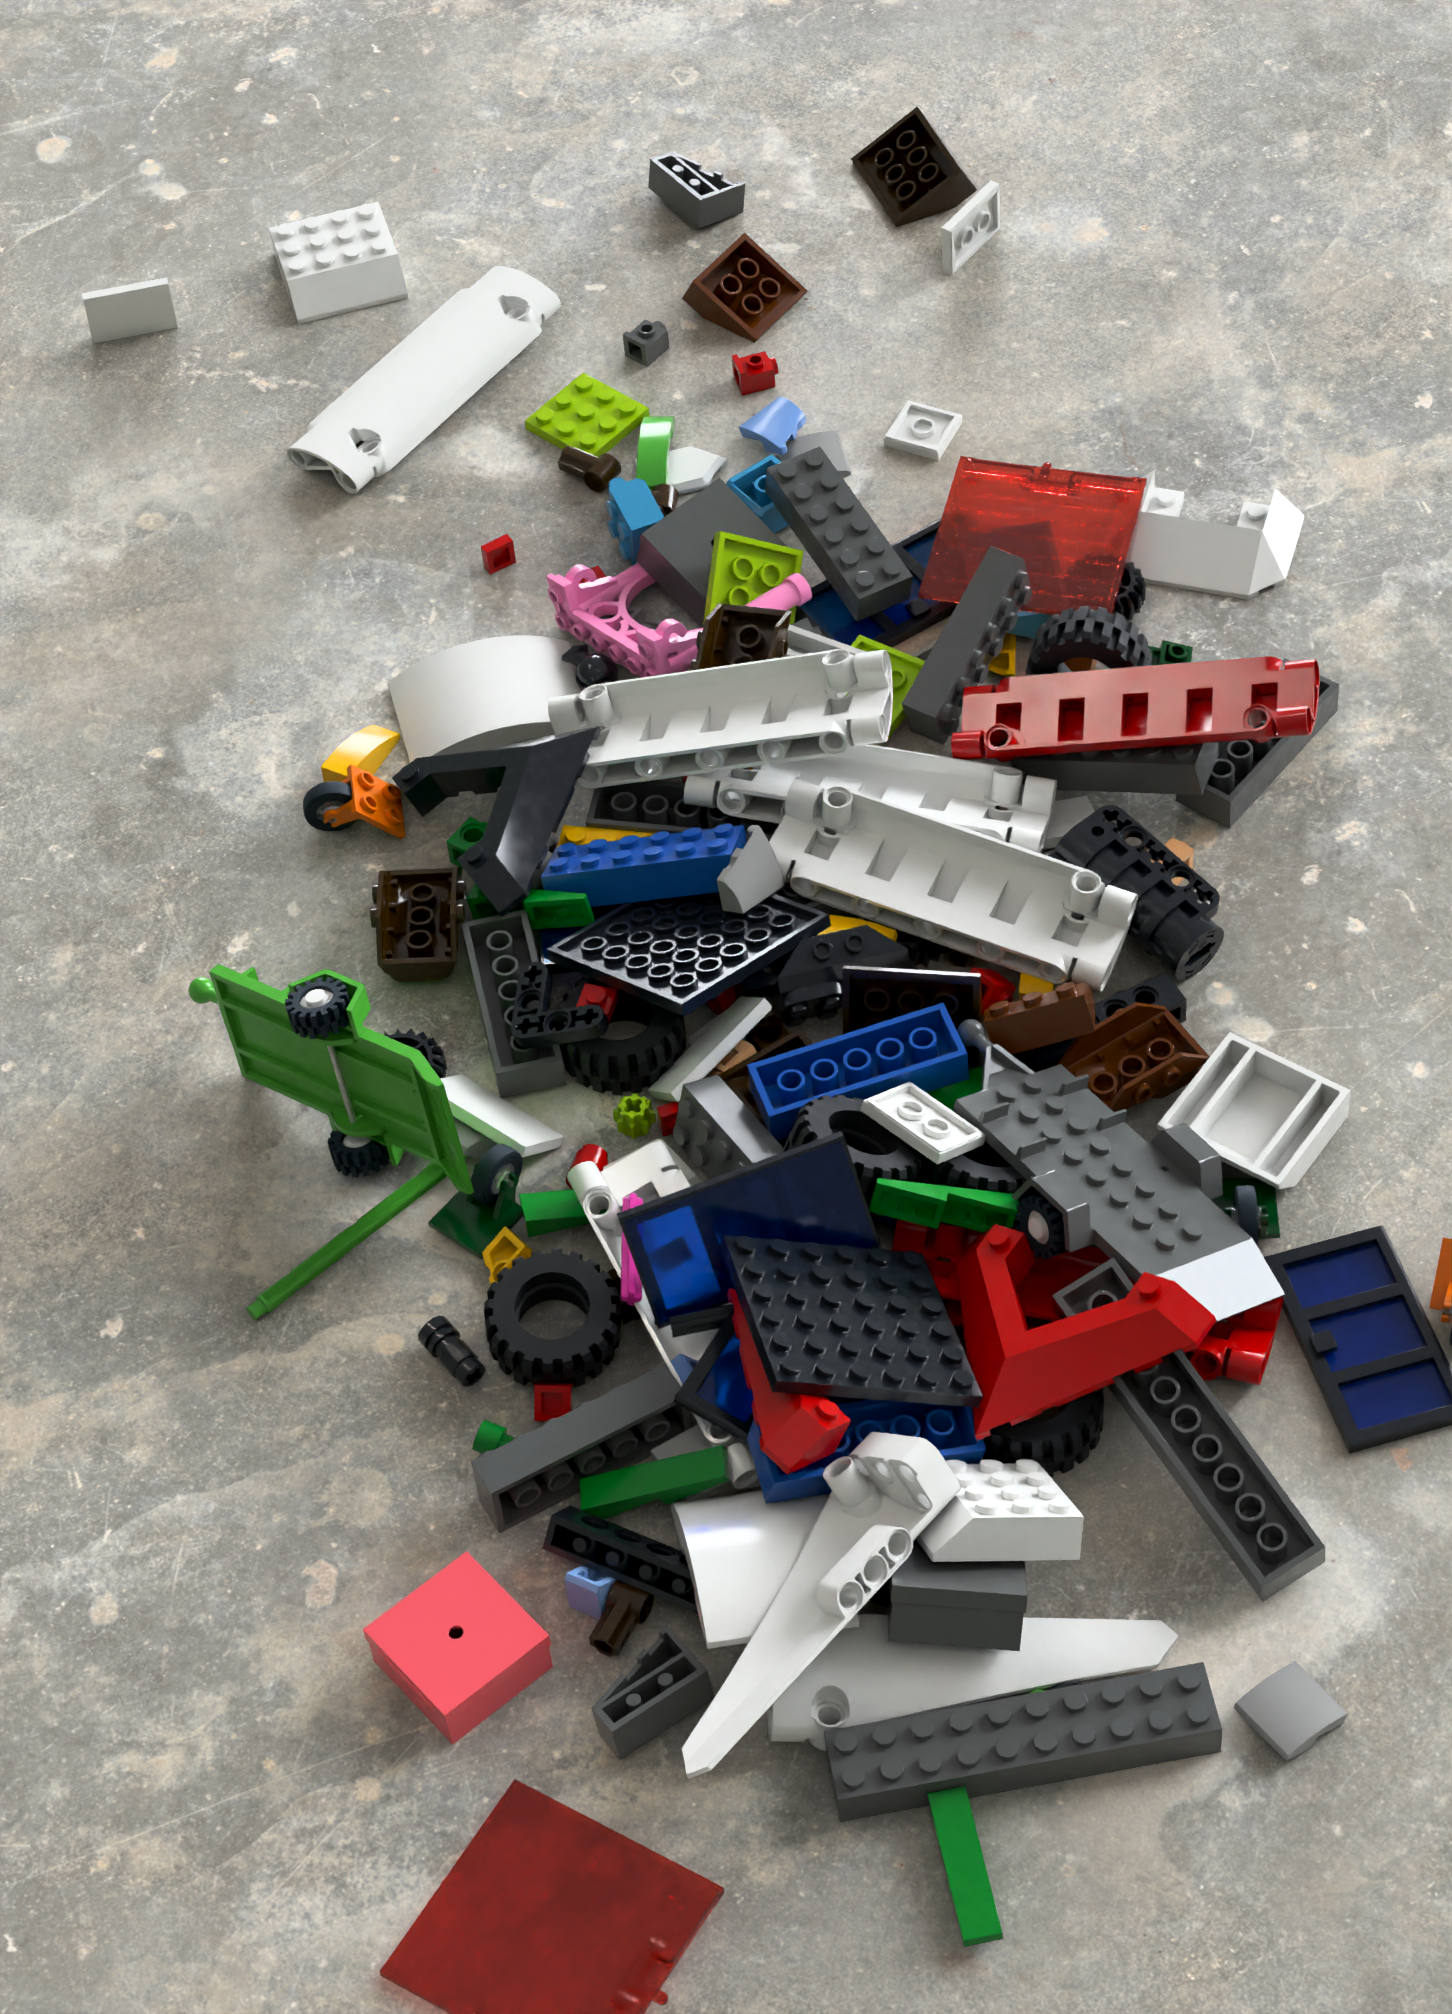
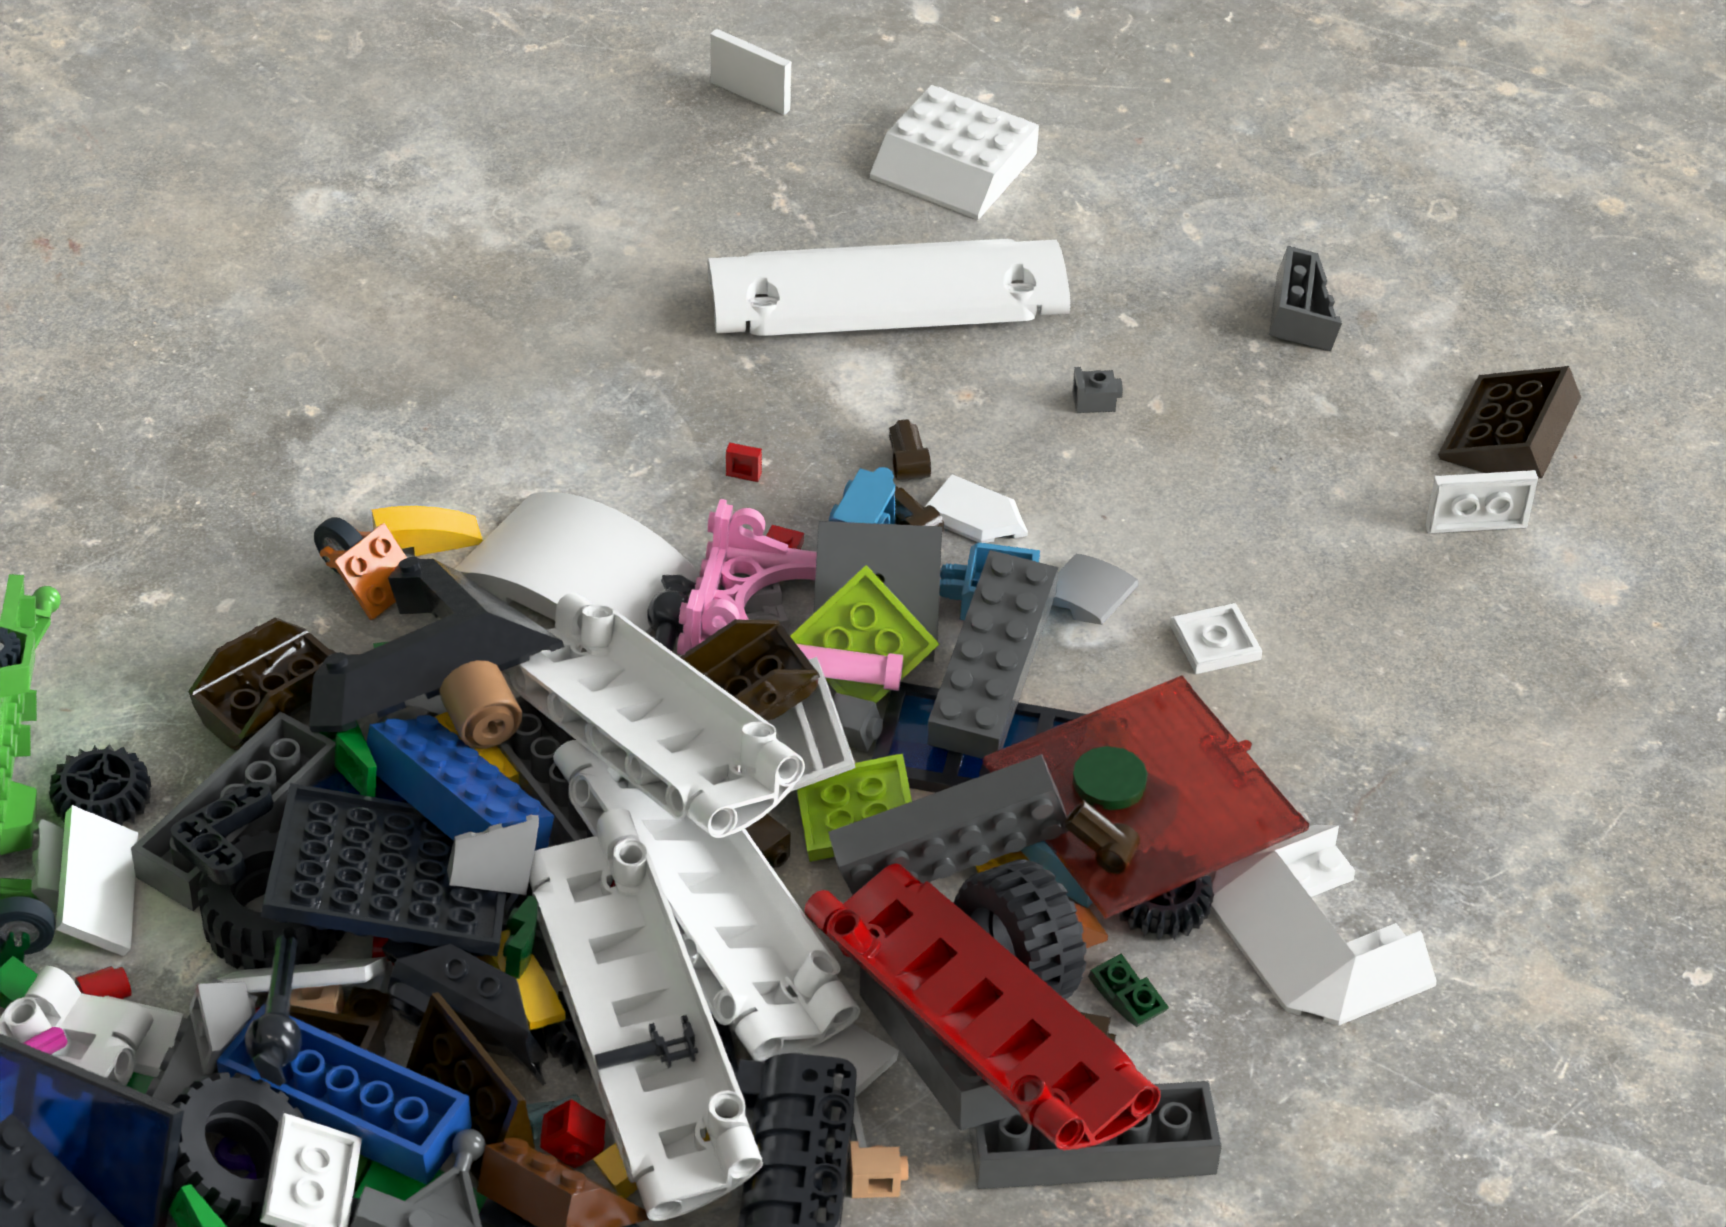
camera: 40 degrees right, 5 degrees down
(587, 416) = (968, 414): lime plate -> none
(597, 806) = (480, 704): none -> medium nougat piece
(601, 996) = (258, 856): red plate -> none
(634, 1116) = (188, 974): lime gear -> none
(654, 449) = (947, 487): bright green slope -> none
(735, 1098) = (217, 1017): none -> light grey slope
(744, 290) = (1229, 409): reddish brown slope -> none
(754, 372) = (1143, 480): red brick -> none
(775, 425) = (1094, 534): medium blue slope -> none
(796, 1068) = (274, 1036): none -> black piece
(824, 900) = (521, 941): none -> dark green slope
(990, 891) = (653, 1047): none -> black piece
(1012, 536) = (1110, 777): none -> dark green tile
(1061, 573) = (1112, 842): none -> dark brown piece

